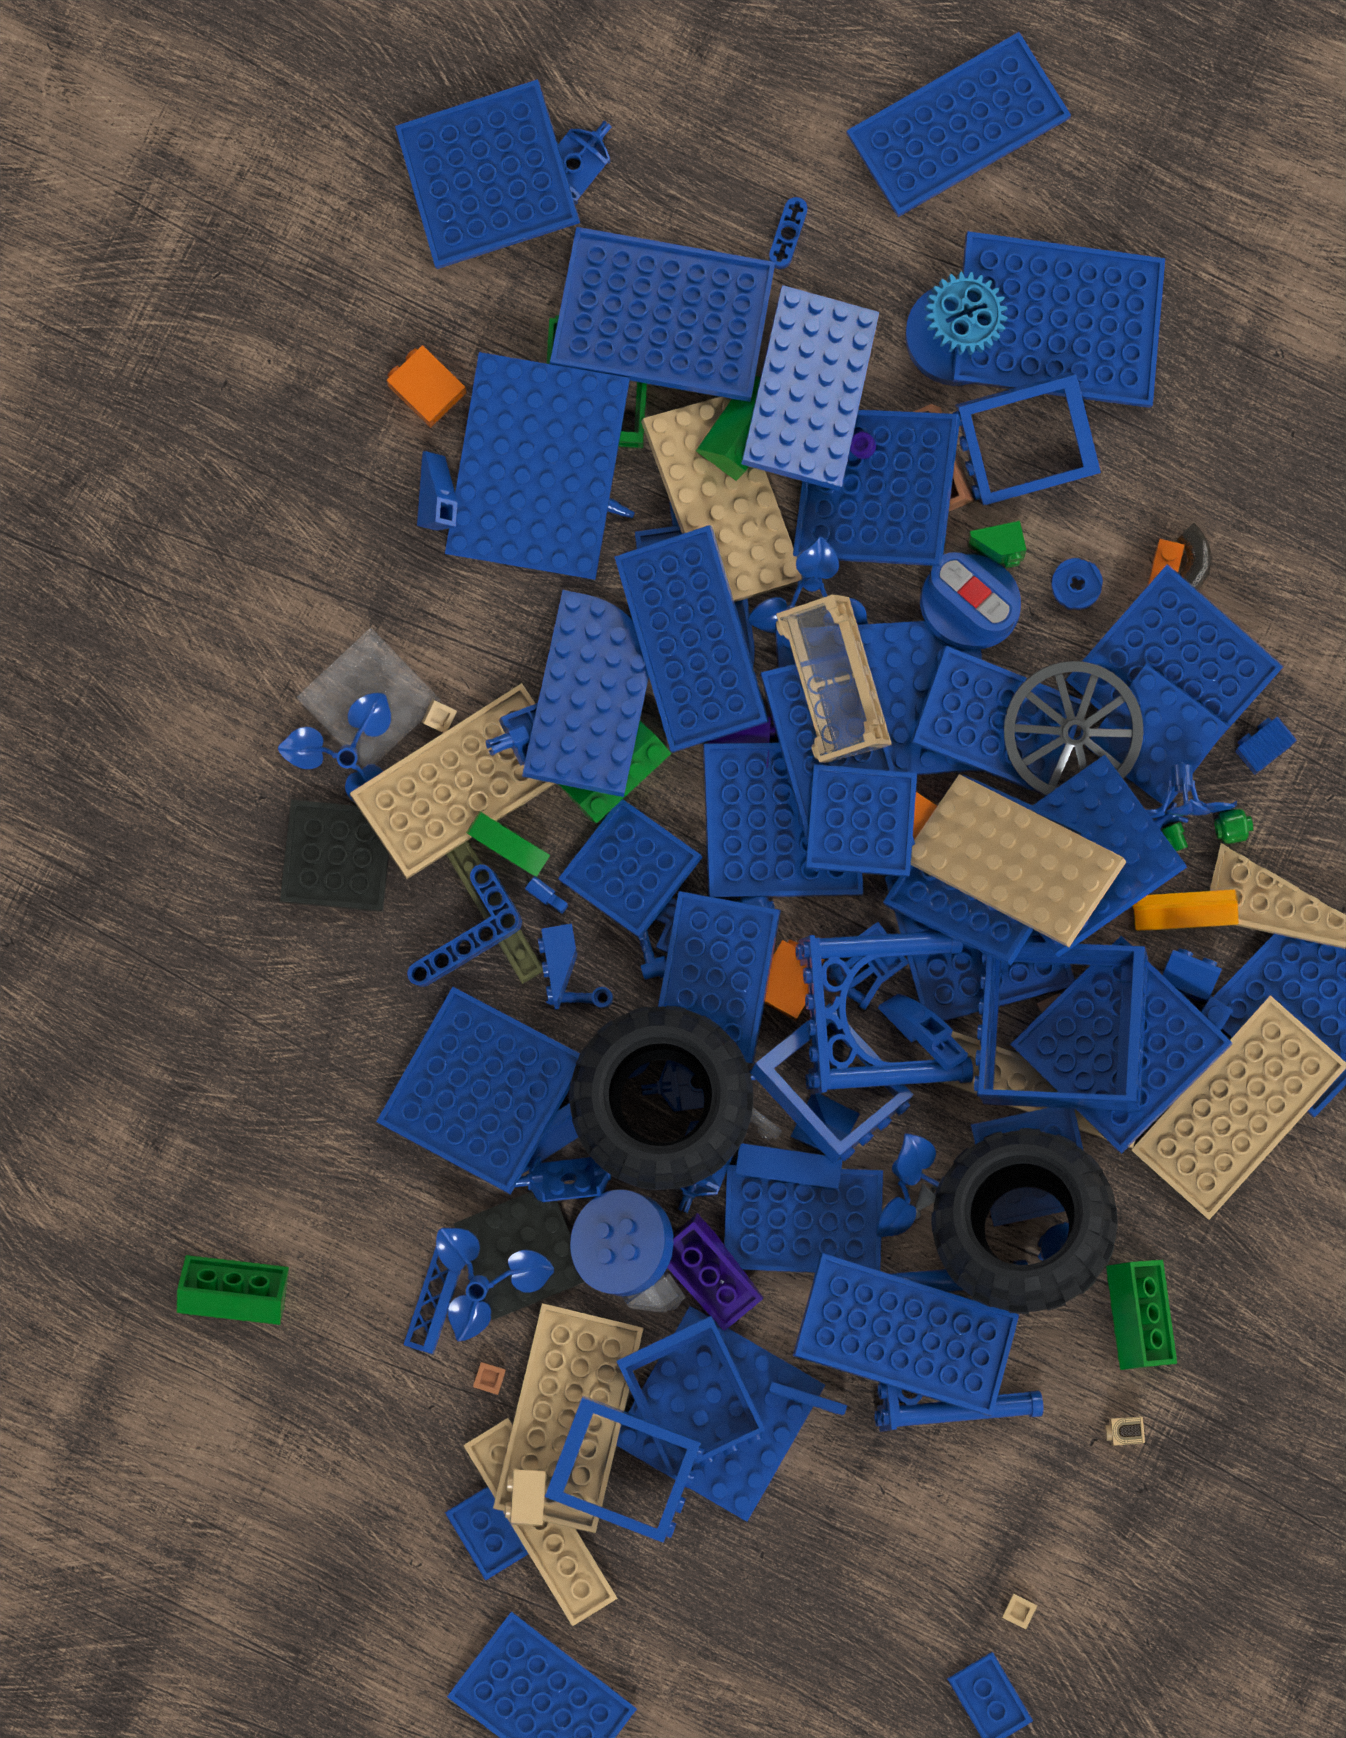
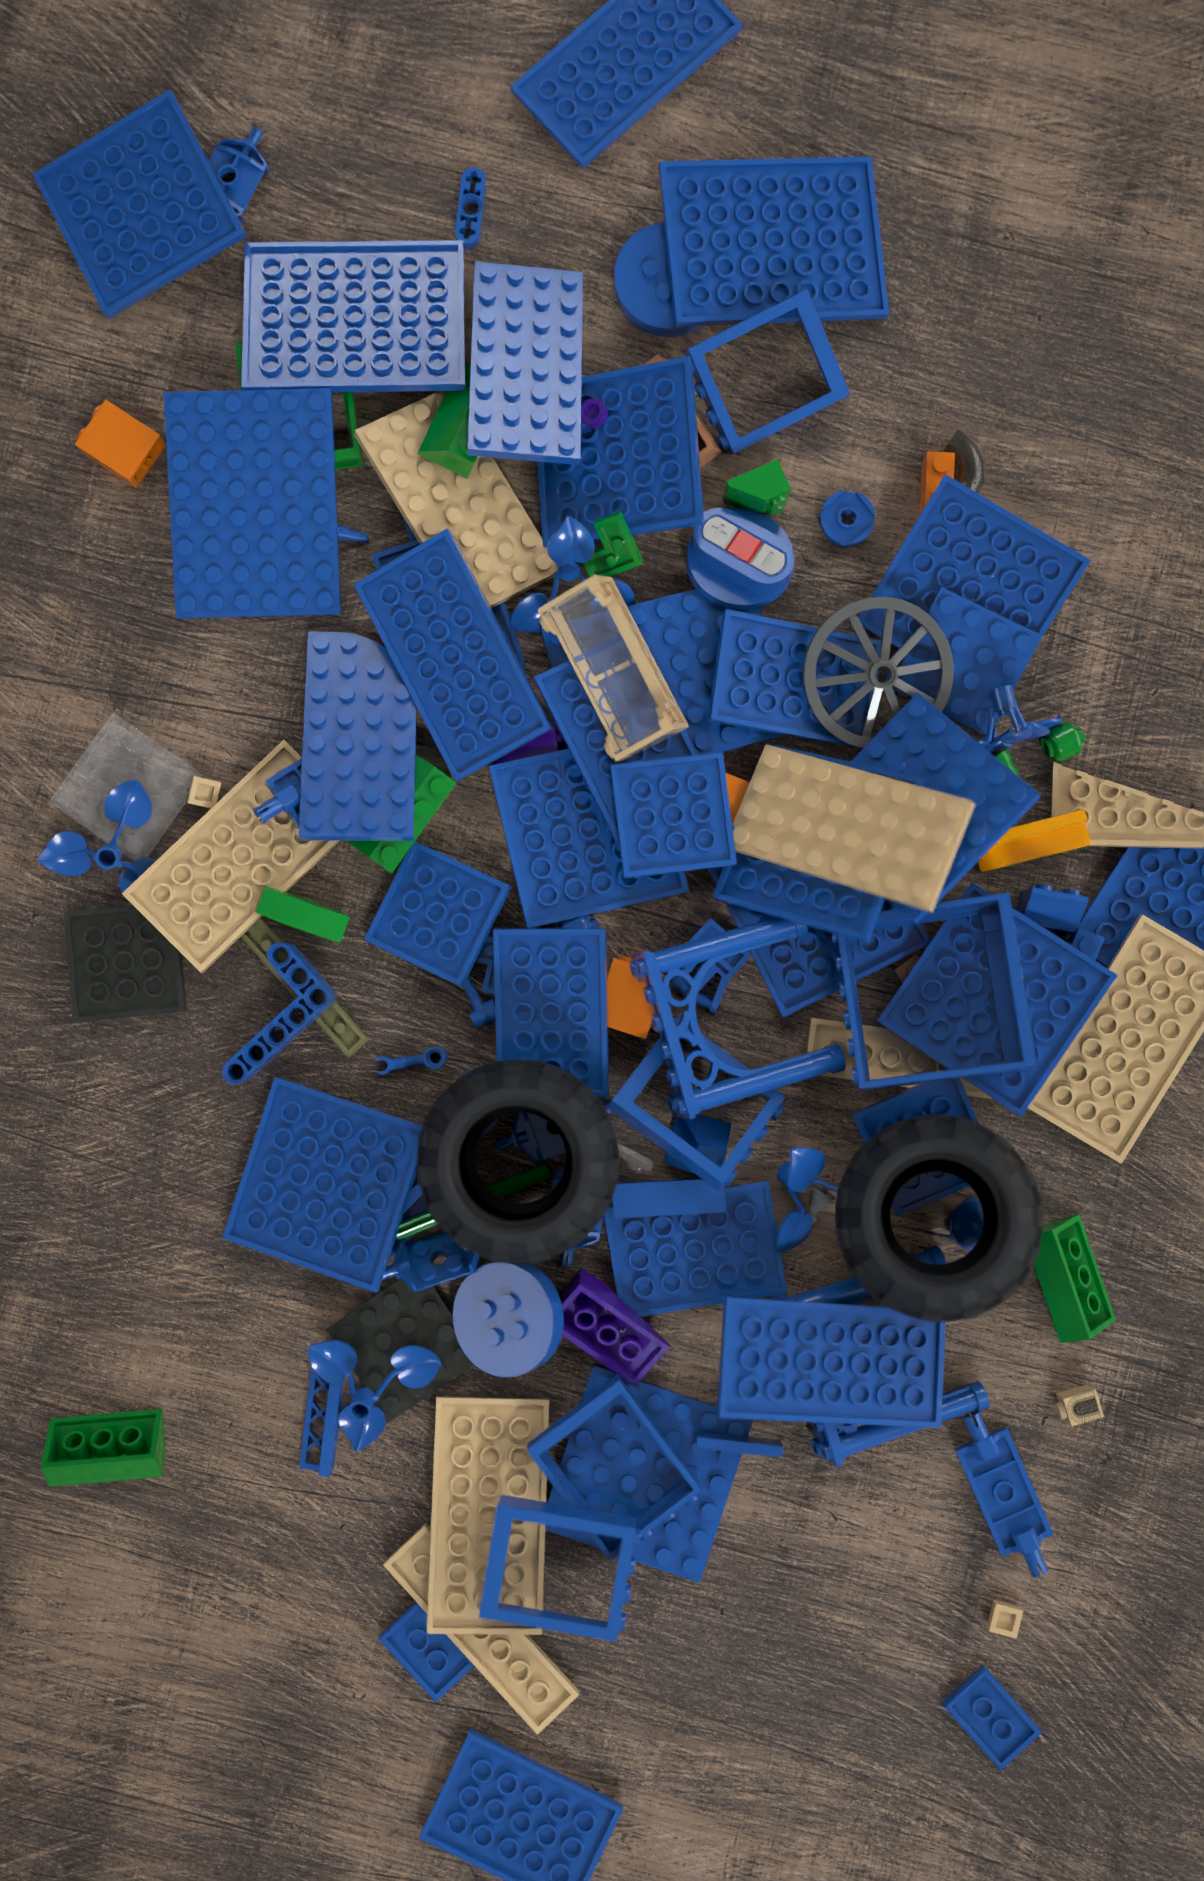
camera: 15 degrees left, 5 degrees up
(437, 496) = (153, 556): blue slope -> none
(489, 1378) = (397, 1486): nougat plate -> none
(527, 1497) = (460, 1619): tan brick -> none
(545, 894) = (354, 958): blue bar -> none
(561, 954) = (382, 1022): blue slope -> none
(642, 1128) = (500, 1189): none -> green axle
(660, 1297) = (560, 1368): clear slope -> none
(860, 572) = (618, 550): none -> green plate
(926, 1027) = (785, 1022): blue slope -> none
(956, 293) = (691, 267): dark azure gear -> none
(1041, 1495) = (1004, 1492): none -> blue plate
(1265, 745) = (1079, 649): blue brick -> none

